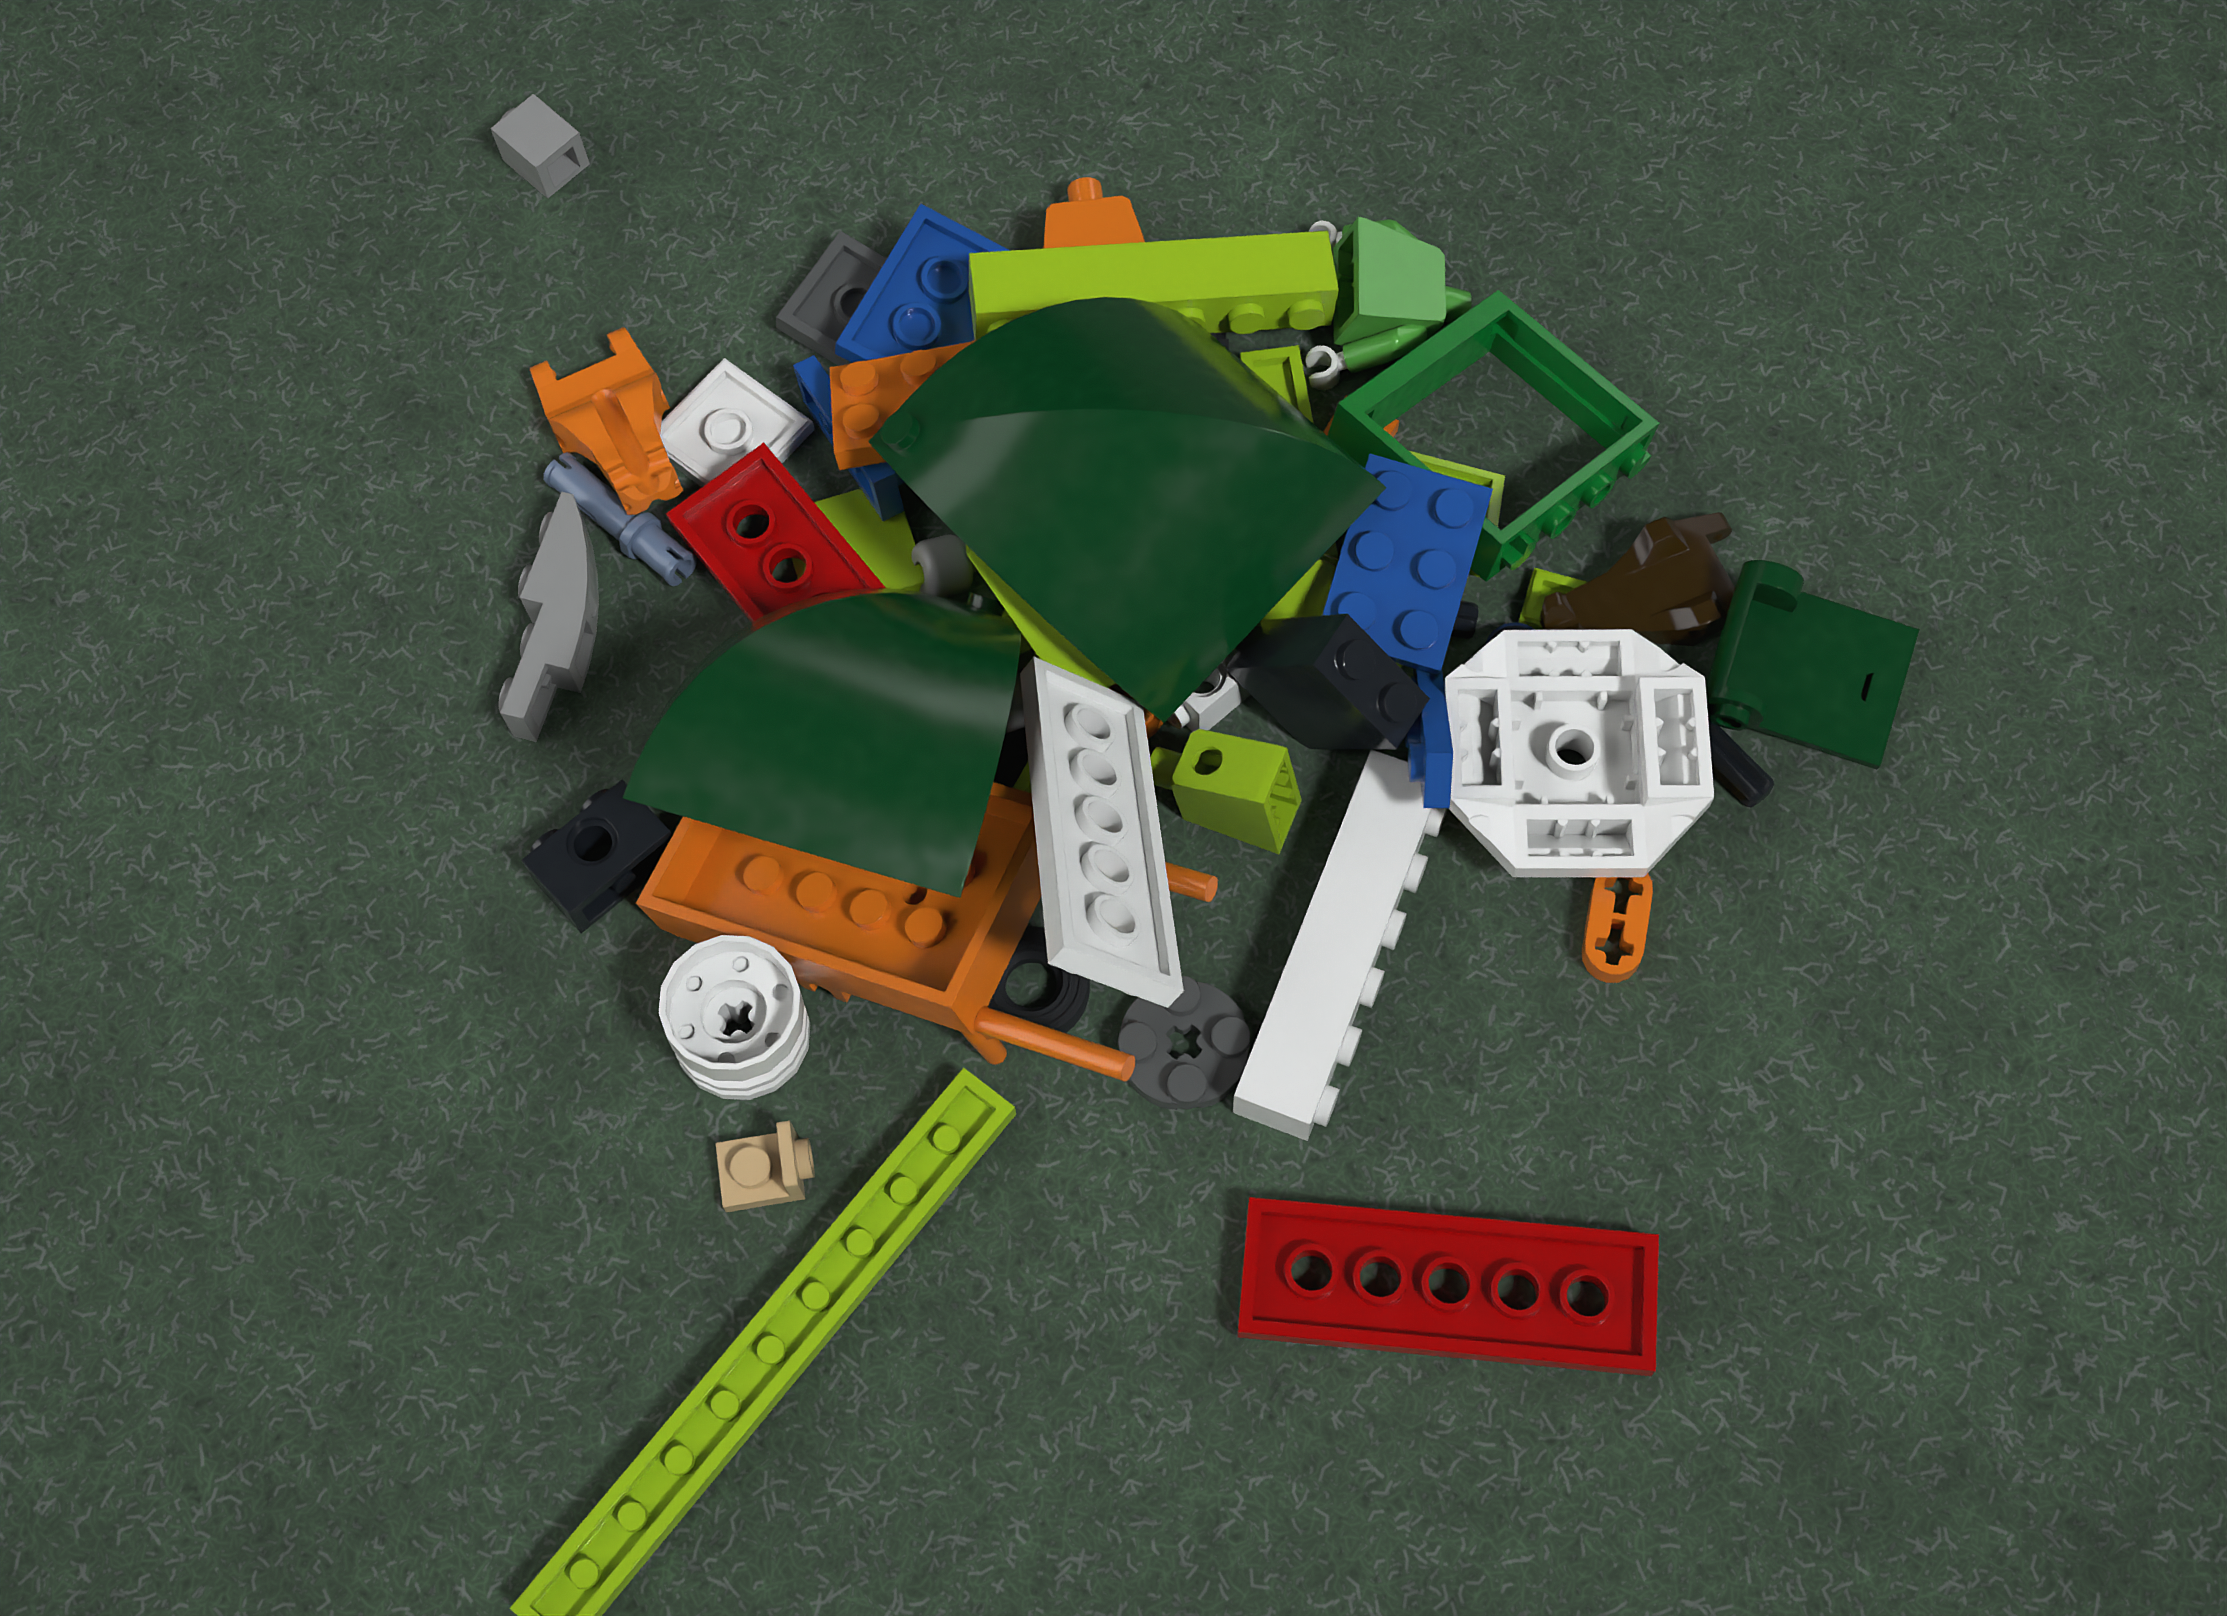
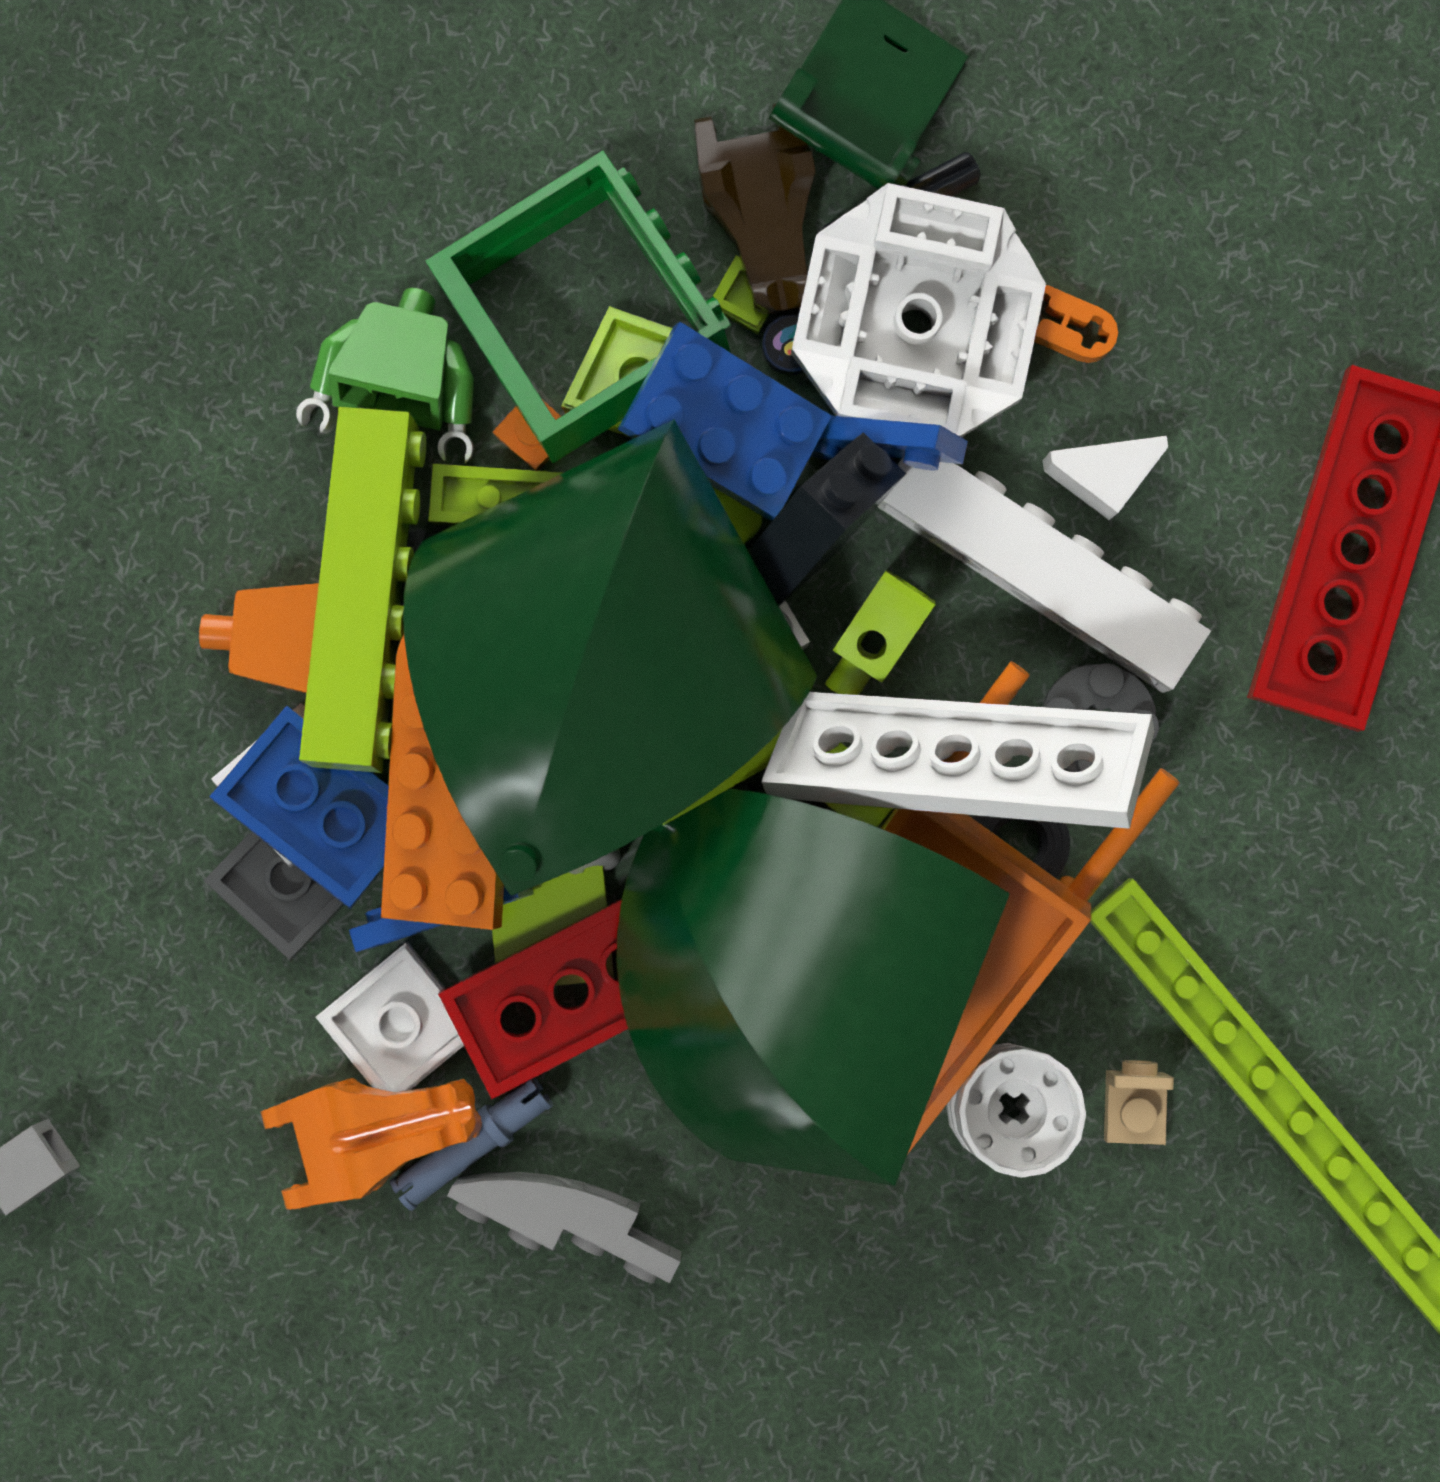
camera: 80 degrees left, 20 degrees up
(591, 889) = (829, 1244): black brick -> none
(1463, 994) = (1105, 473): none -> white slope

